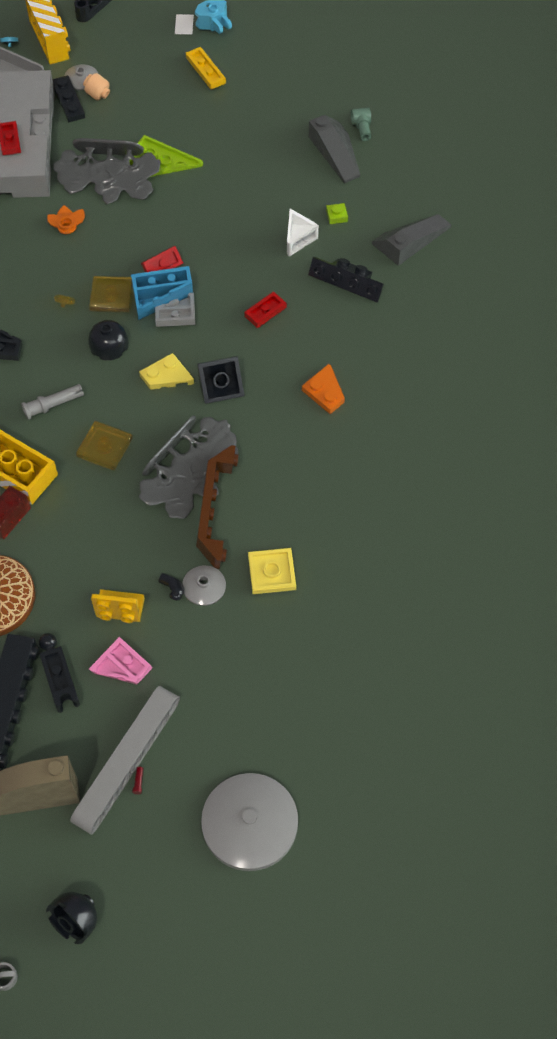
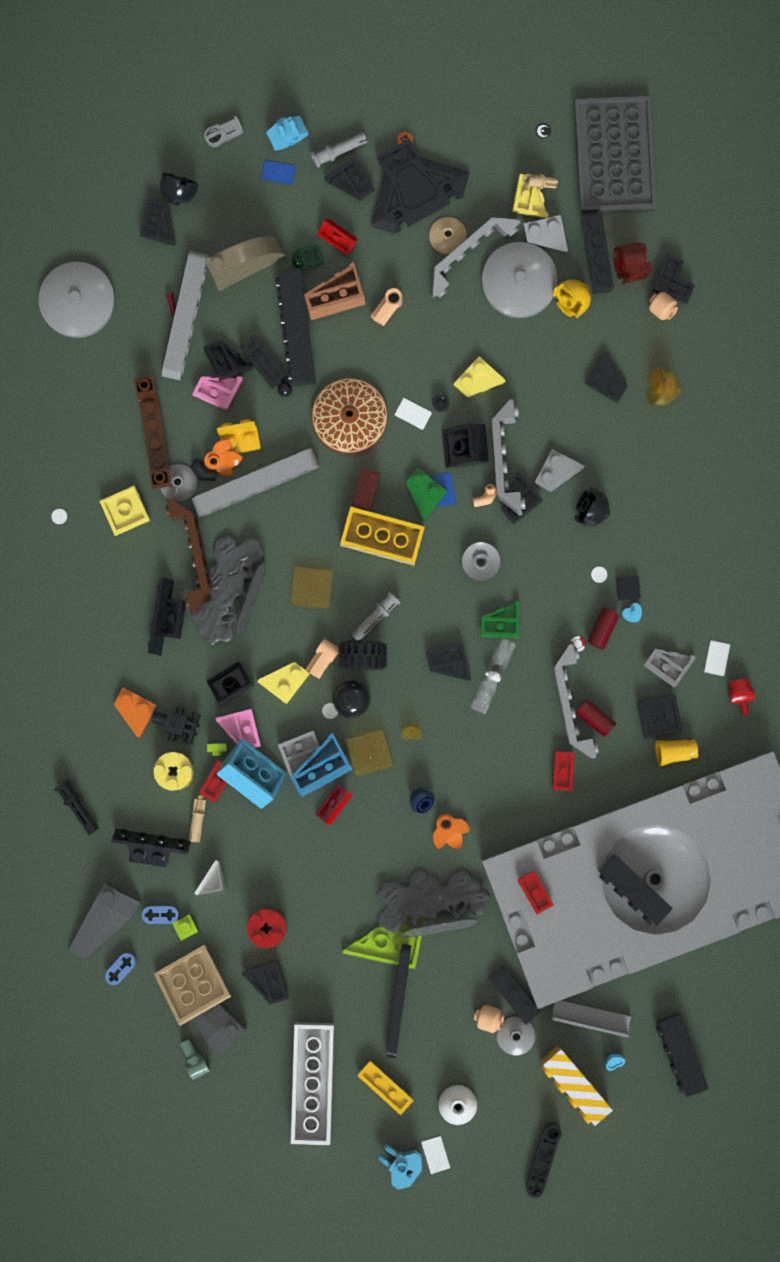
camera: 165 degrees right, 25 degrees up
(78, 360) = (362, 655): none -> black tyre
(79, 244) = (421, 800): none -> dark blue cone
(100, 691) = (225, 361): none -> black wing
(116, 382) = (324, 655): none -> light nougat piece
(117, 883) = (157, 223): none -> black wing
(120, 556) = (255, 482): none -> light grey beam
(134, 340) = (329, 711): none -> white sticker
(146, 590) = (225, 458): none -> orange plate
(150, 43) = (452, 1096): none -> white piece
(167, 114) = (398, 1001): none -> black beam
(212, 633) = (154, 433): none -> reddish brown slope
(225, 343) = (240, 726): none -> bright pink wing
(228, 300) = (252, 773): none -> medium azure slope
(254, 334) = (217, 749): none -> lime plate
(260, 455) = (167, 617): none -> black bracket
(262, 189) = (258, 935): none -> red brick
(264, 80) = (312, 1083): none -> white brick
(277, 157) = (268, 981): none -> black wing
(285, 363) = (176, 724): none -> black piece
(294, 289) = (197, 819): none -> tan piece
(303, 324) = (185, 771): none -> light yellow brick
(344, 166) = (192, 985): none -> tan plate
(346, 590) = (59, 516): none -> white sticker
(356, 227) = (160, 919): none -> medium blue beam
(405, 200) = (124, 971): none -> medium blue beam
(412, 331) = (71, 799): none -> black pin

